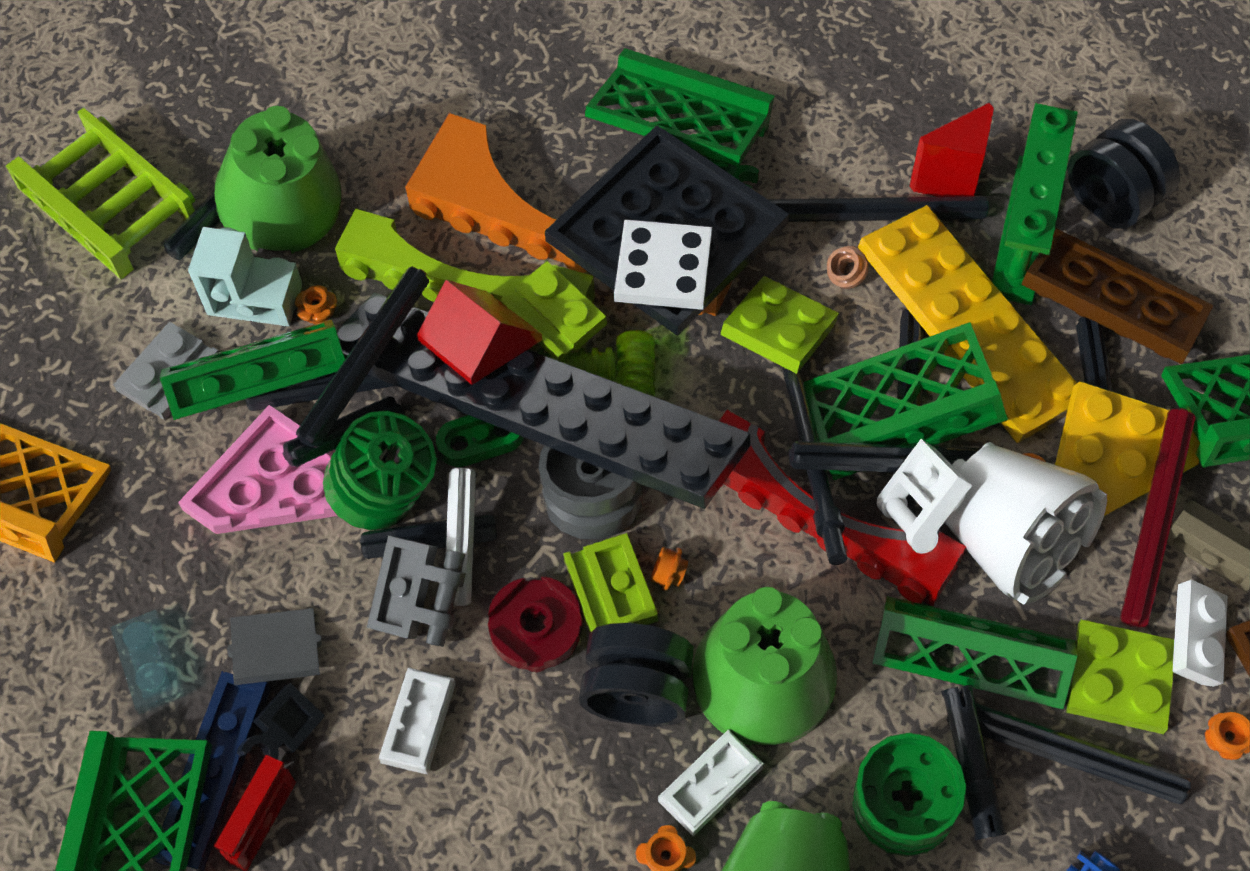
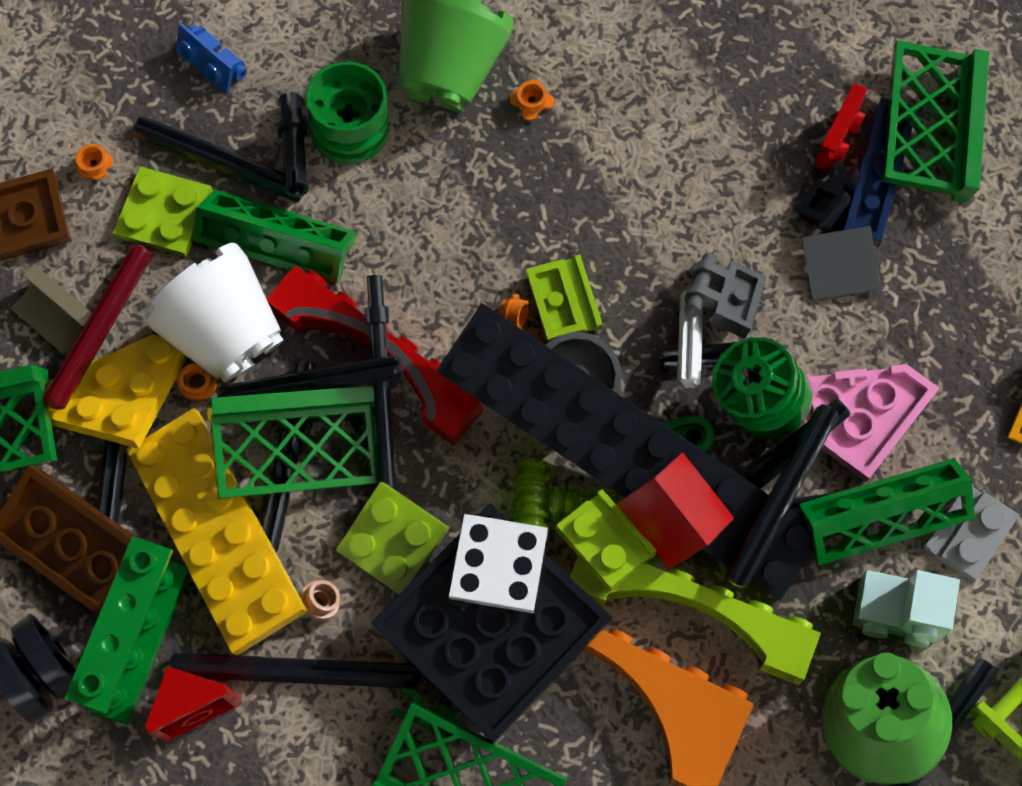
camera: 175 degrees left, 10 degrees up
(147, 661) = (945, 262): clear light blue plate -> none
(315, 313) = (825, 595): orange plate -> none
(417, 721) = (720, 201): white plate -> none
(534, 598) = (627, 252): dark red plate -> none
(636, 674) = (546, 206): black wheel -> none
(710, 782) = (493, 145): white plate -> none
(765, 670) = (443, 220): bright green cone -> none
(934, 487) = (292, 331): white plate -> none
(1200, 633) = (92, 236): white plate -> none

